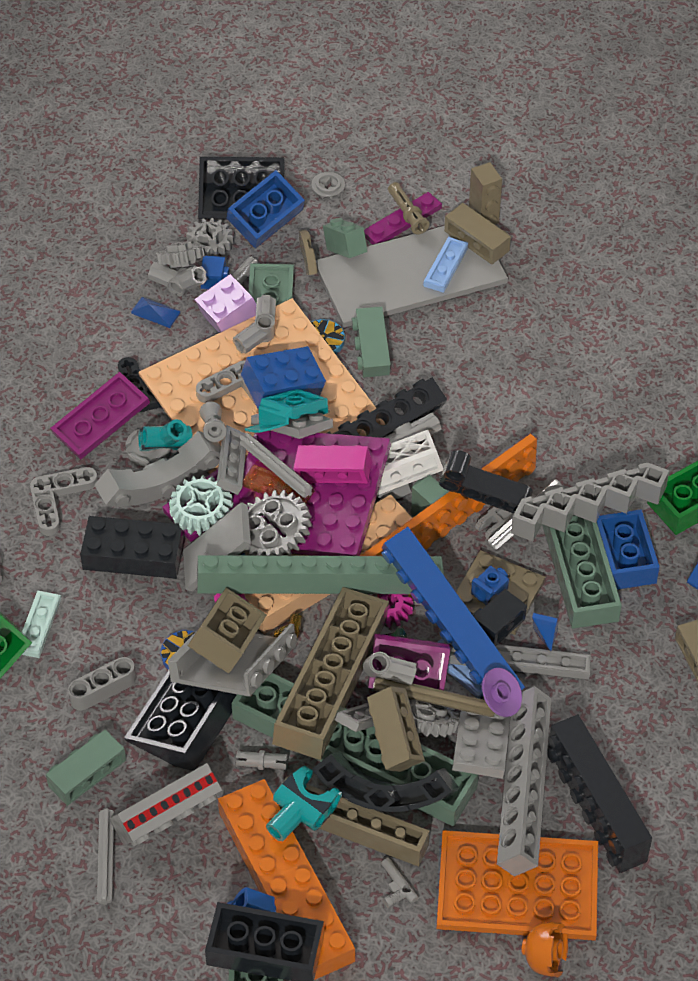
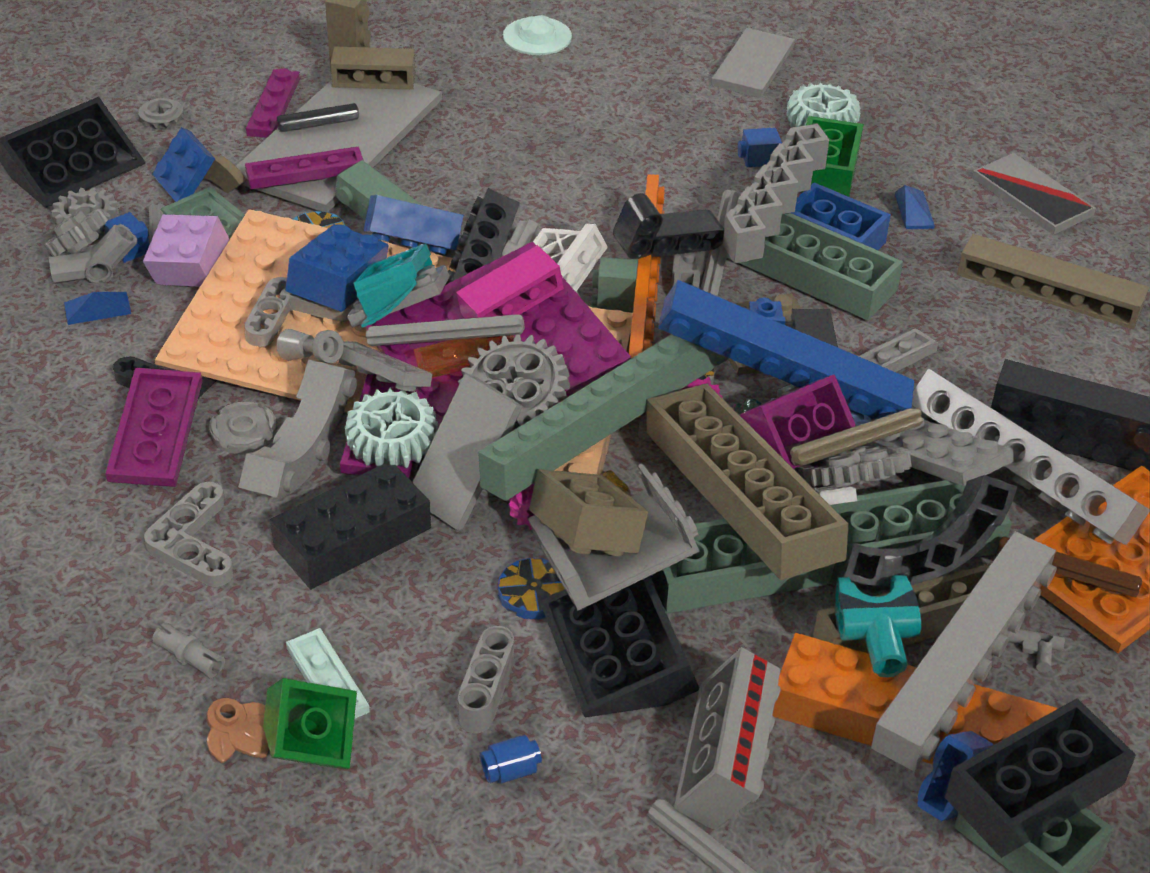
camera: 45 degrees left, 10 degrees down
(67, 733) = (510, 759): none -> blue brick
(85, 767) = (575, 778): sand green brick -> none
(169, 436) = (271, 392): teal connector -> none
(262, 329) = (256, 240): light grey piece -> none
(262, 760) = (751, 627): light grey pin -> none
(265, 209) = (126, 151): blue brick -> none
(289, 240) = (183, 165): none -> blue plate
(326, 854) = (964, 652): none -> light grey brick
(345, 238) = (244, 133): sand green brick -> none
(354, 287) = (301, 167): none -> magenta plate
(365, 372) = (413, 224): none -> brick
(392, 668) = (802, 427): light grey piece -> none
(395, 729) = (880, 478): dark tan brick -> none
(404, 251) = (317, 117): none -> black axle
(411, 213) = (286, 85): dark tan pin -> none
(445, 264) = (371, 108): light blue tile -> none
(463, 861) = (1092, 573): none -> reddish brown axle
(502, 692) = (909, 393): medium lavender dish -> none
(546, 628) = (861, 325): blue slope -> none
(633, 267) = (537, 35): none -> light aqua hat
(662, 454) = (758, 146): none -> blue brick

